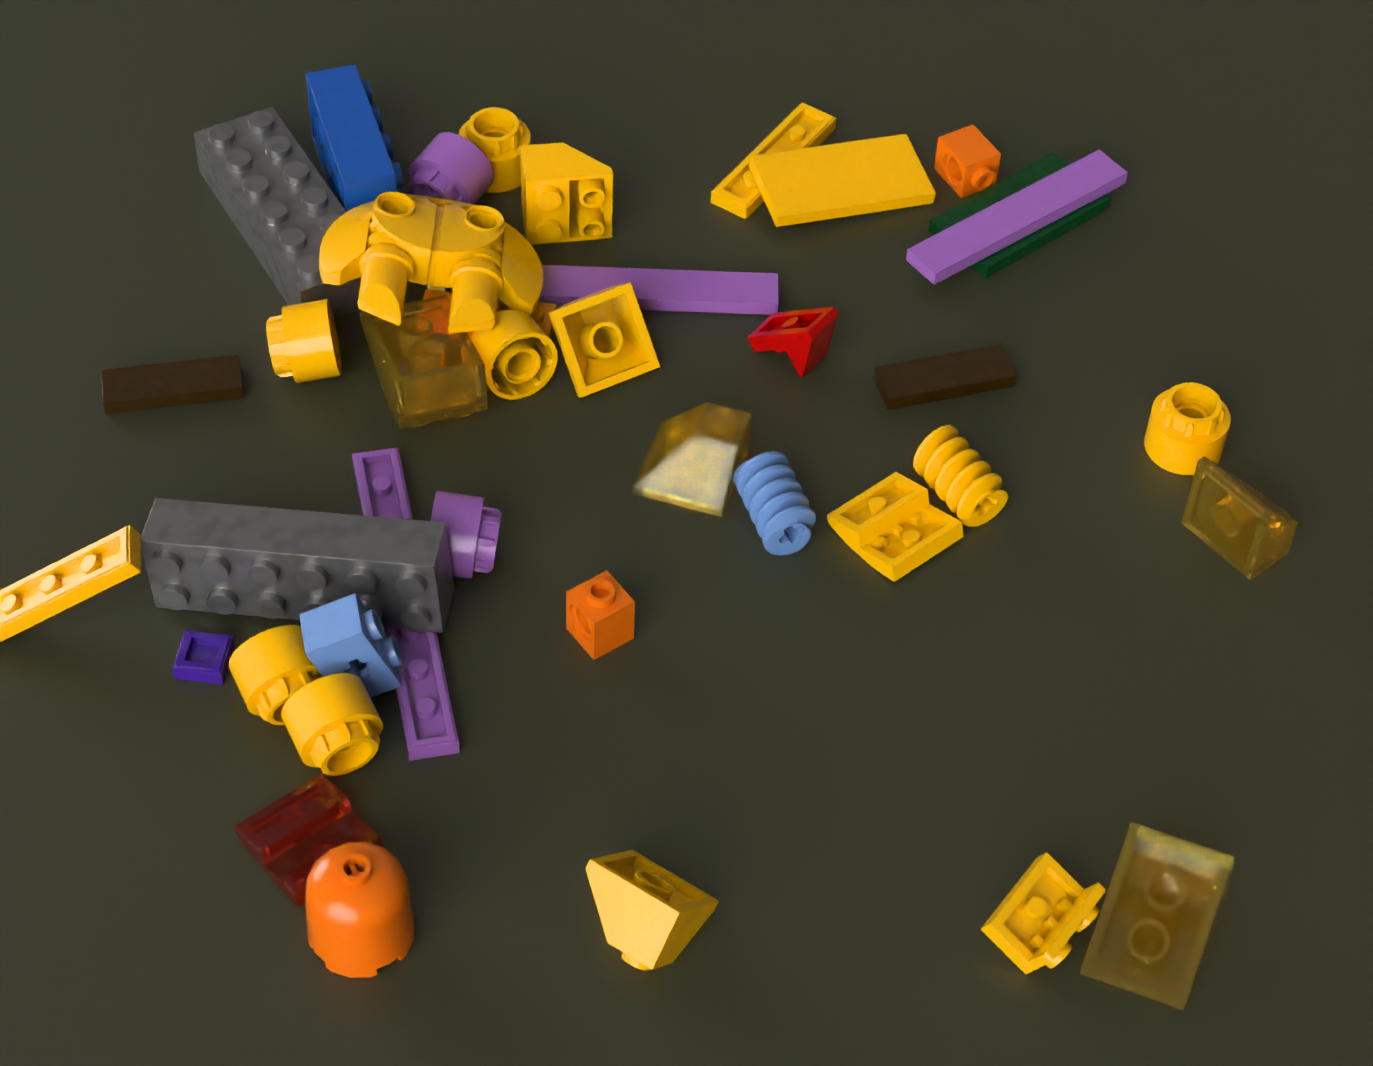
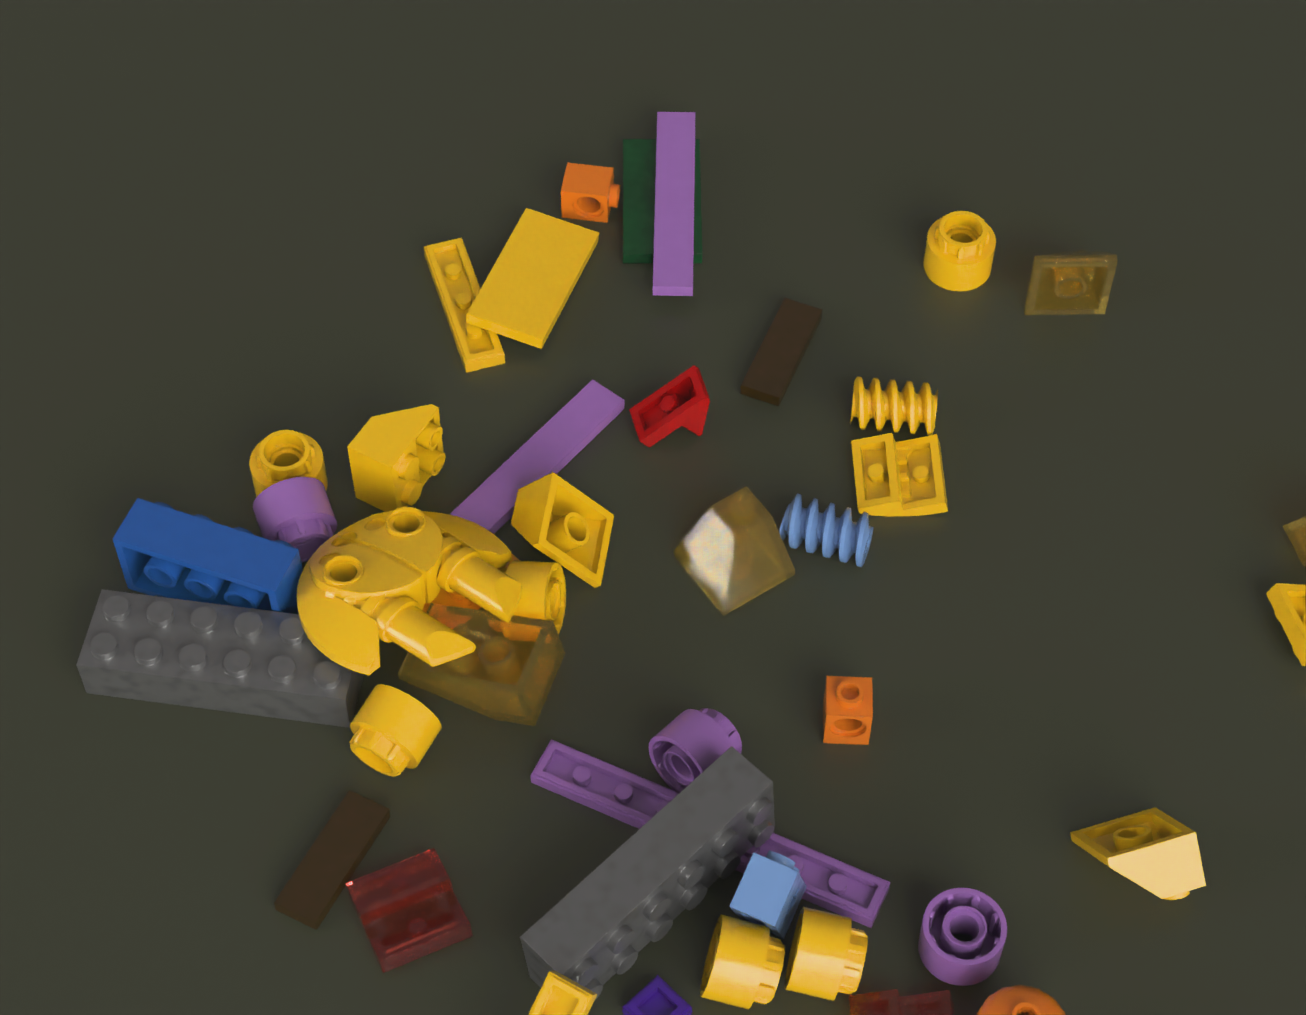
camera: 50 degrees left, 5 degrees up
(165, 452) = (409, 910): none -> clear red slope
(432, 809) = (966, 914): none -> medium lavender piece

